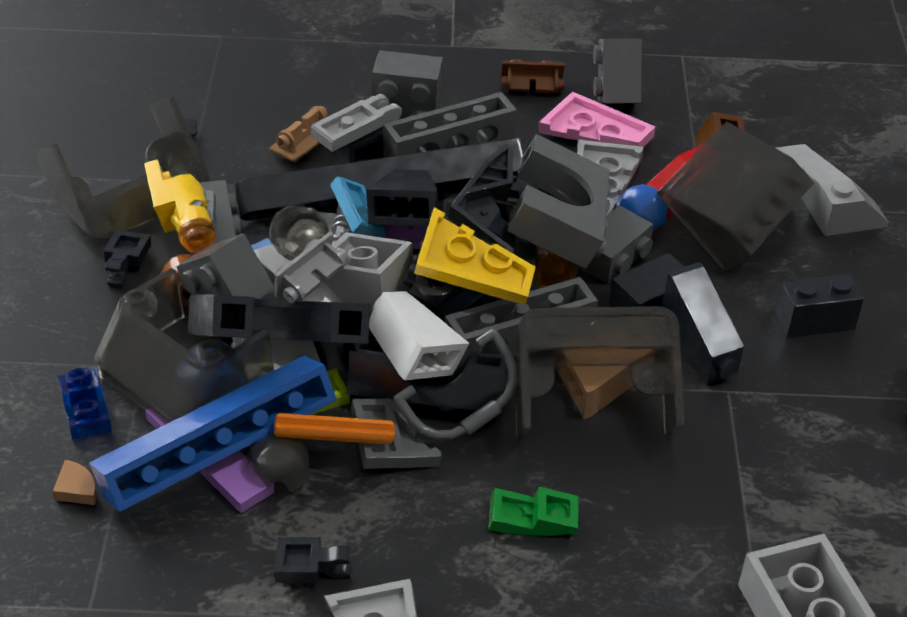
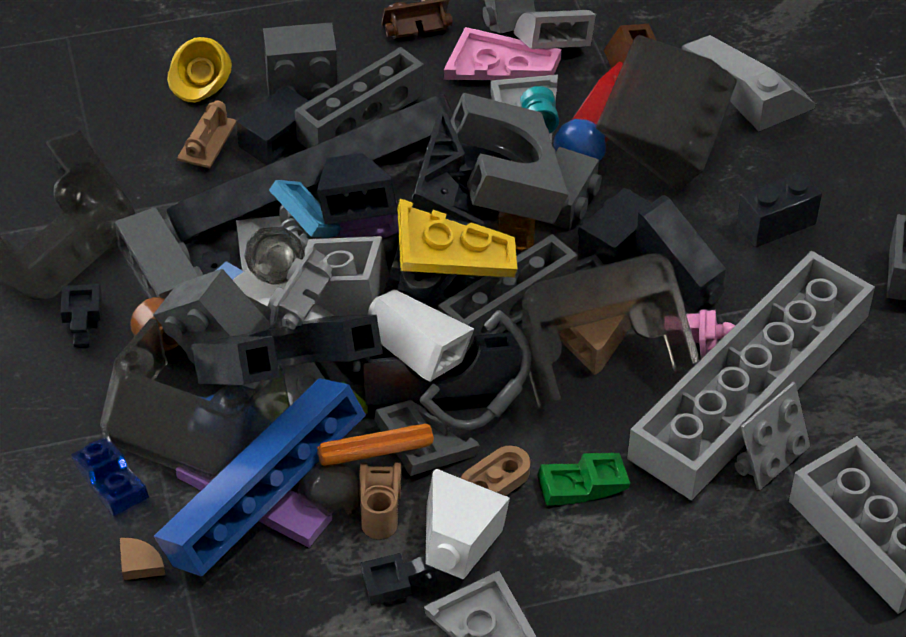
camera: 15 degrees left, 5 degrees up
(183, 207) = (133, 248): yellow plate -> none
(318, 79) = (198, 69): none -> yellow hat
(324, 483) = (379, 499): none -> medium nougat piece
(355, 122) = (265, 114): light grey hinge -> none
(390, 524) = (461, 523): none -> white slope
(443, 489) = (492, 470): none -> medium nougat plate
(618, 163) = (541, 100): none -> teal wheel
(655, 107) = (556, 29): none -> light grey brick
(706, 403) = (706, 330): none -> bright pink piece
(734, 451) = (775, 344): none -> light grey brick
(739, 516) = (773, 437): none -> light grey hinge

